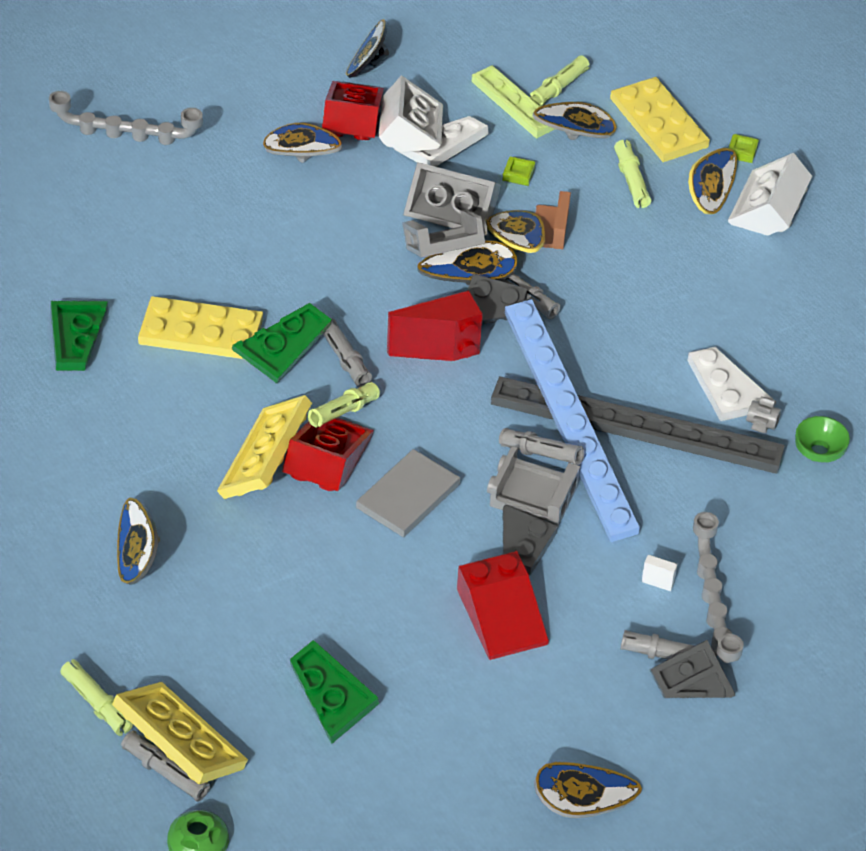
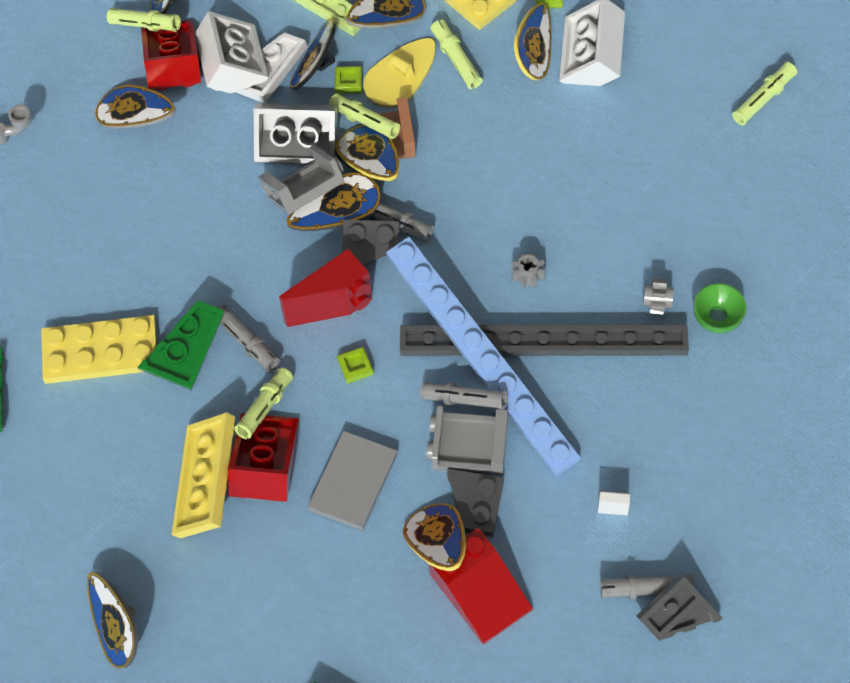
camera: 10 degrees left, 15 degrees up
(345, 75) = (152, 20): none -> yellowish green pin
(443, 401) = (355, 365): none -> lime tile
(474, 550) = (437, 536): none -> shield
(486, 145) = (316, 57): none -> shield
(516, 195) = (346, 107): none -> yellowish green pin
(573, 175) = (399, 73): none -> light yellow shield
(641, 363) = (521, 272): none -> light grey gear
(724, 383) = (612, 269): white wing -> none
(728, 645) = (706, 574): light grey bar -> none

